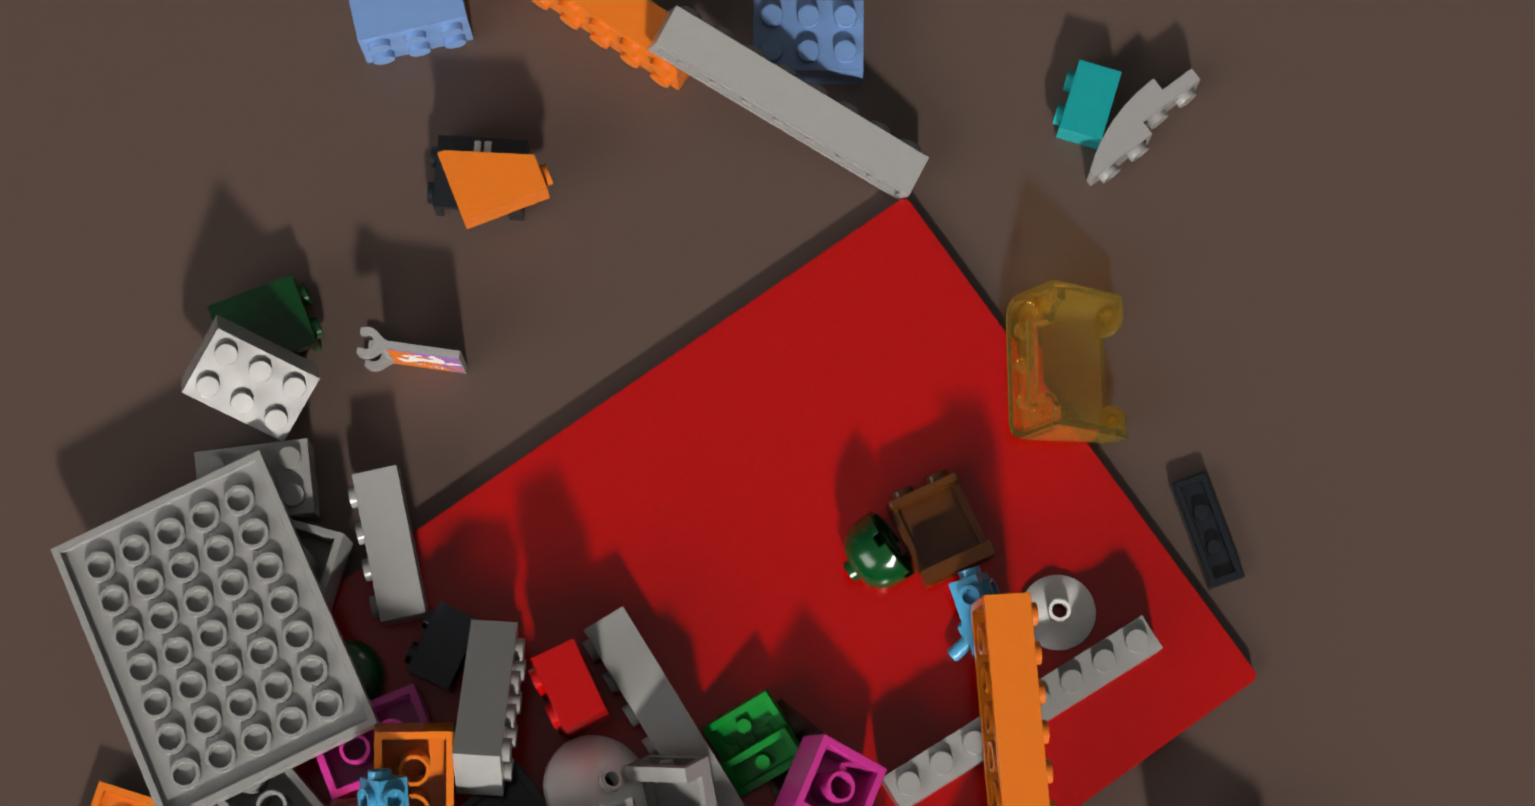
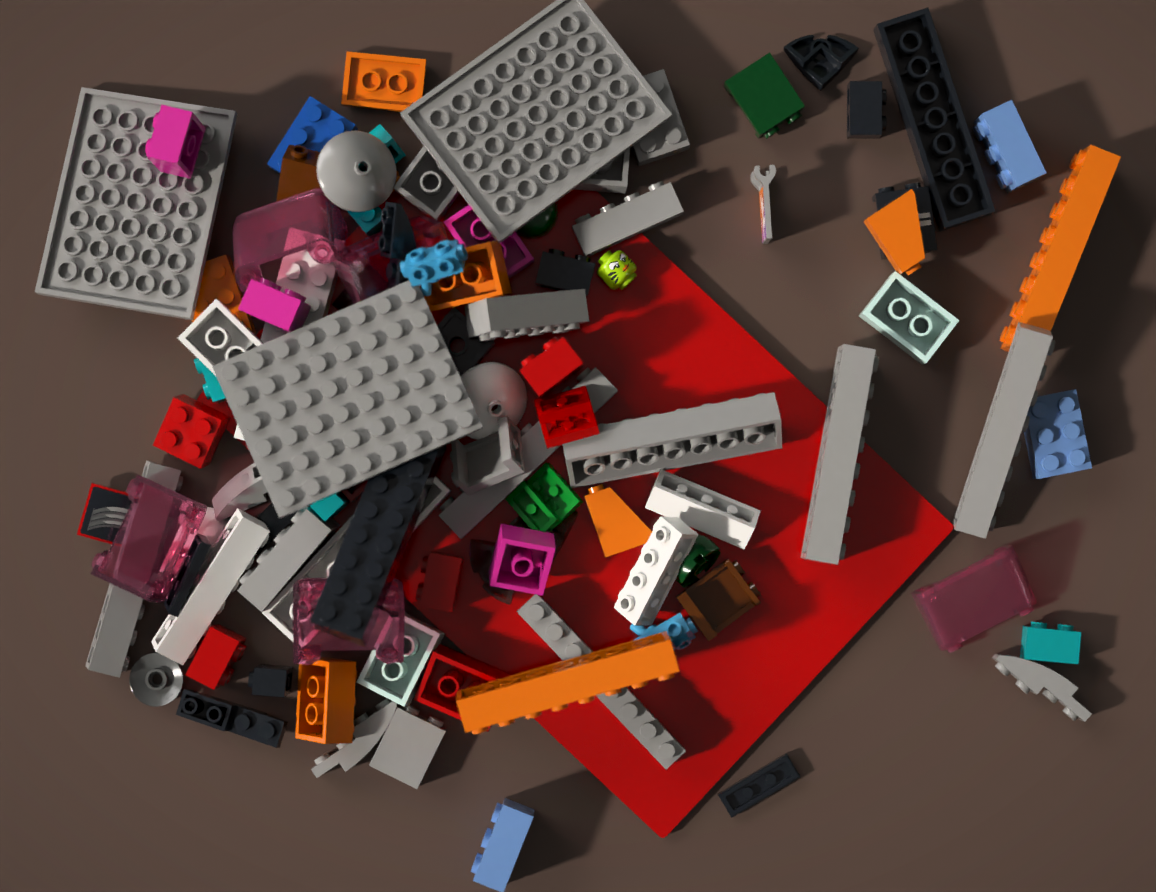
camera: 75 degrees right, 10 degrees up
(232, 244) = (820, 58): none -> black brick
(250, 378) = (723, 95): brick -> none
(316, 198) = (865, 110): none -> black brick
(350, 110) = (933, 119): none -> black brick
(455, 574) = (616, 269): none -> lime head
(610, 197) = (909, 318): none -> light aqua brick
(644, 682) = (566, 417): none -> red slope
(707, 546) = (675, 440): none -> light grey brick
(775, 324) = (838, 454): none -> light grey brick
(804, 649) = (614, 521): none -> orange slope
(837, 491) = (699, 509): none -> white brick
(883, 604) = (655, 570): none -> white brick
(1007, 188) = (975, 598): none -> clear pink windscreen
(1060, 364) = (854, 660): clear yellow windscreen -> none
(1080, 616) = (681, 707): white dish -> none

